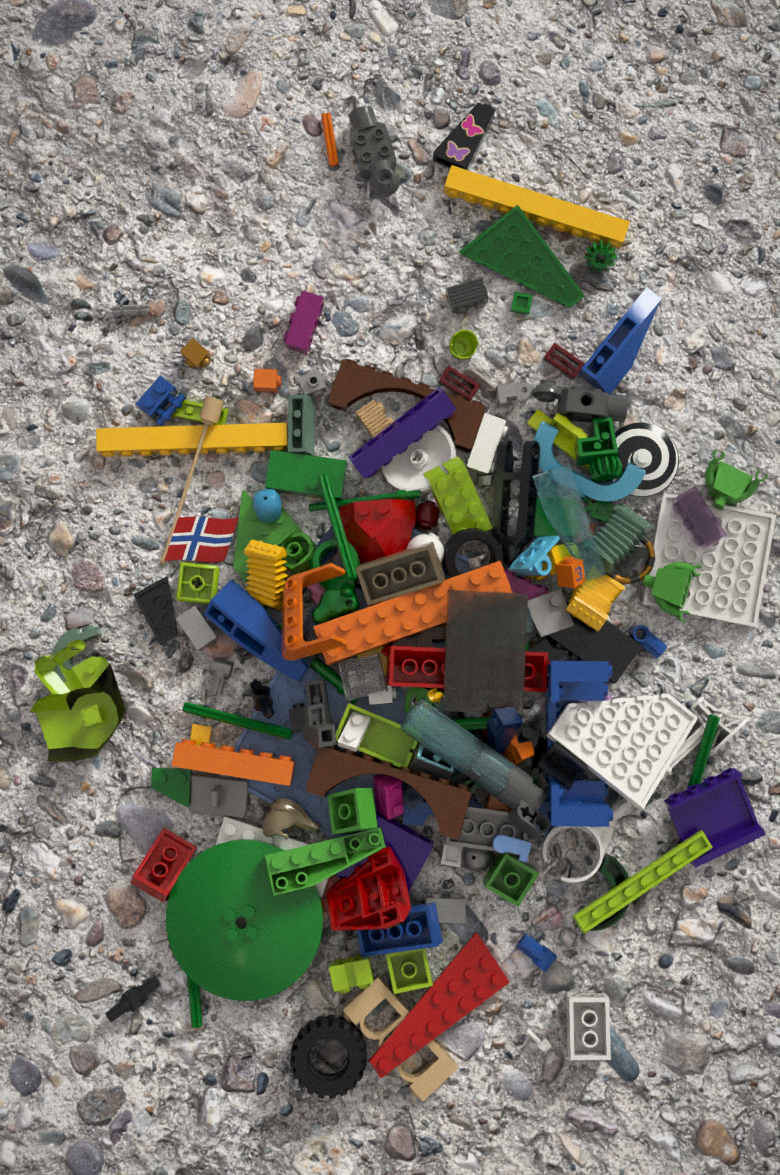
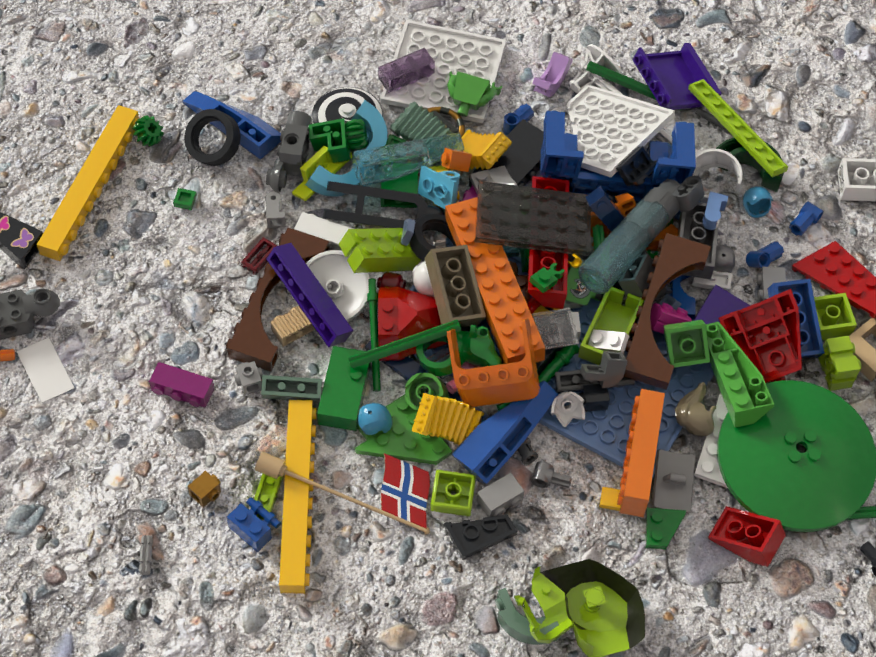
camera: 90 degrees left, 25 degrees down
(237, 720) = (596, 458): green axle -> none
(262, 698) = (575, 429): black axle -> none
(266, 380) = (240, 422): orange brick -> none
(288, 690) = (567, 413): none -> white piece
(321, 196) = (45, 370): none -> white sticker
(403, 663) = (546, 279): none -> green plate
(463, 344) = (221, 247): lime hair -> none
(467, 296) = (171, 242): dark grey brick -> none
(479, 899) = (765, 255): none -> blue piece
(481, 526) = (408, 231): none -> sand blue tile
(510, 877) = (740, 231): bright green brick -> none
(521, 254) = (137, 194): green wing -> none
(555, 899) = (757, 200): none -> dark azure helmet
(560, 367) = (248, 172): dark red tile -> none
(587, 303) = (193, 131): none -> black tyre
(707, 678) = (553, 75): none -> lavender arch
(728, 483) = (375, 49): bright green torso -> none

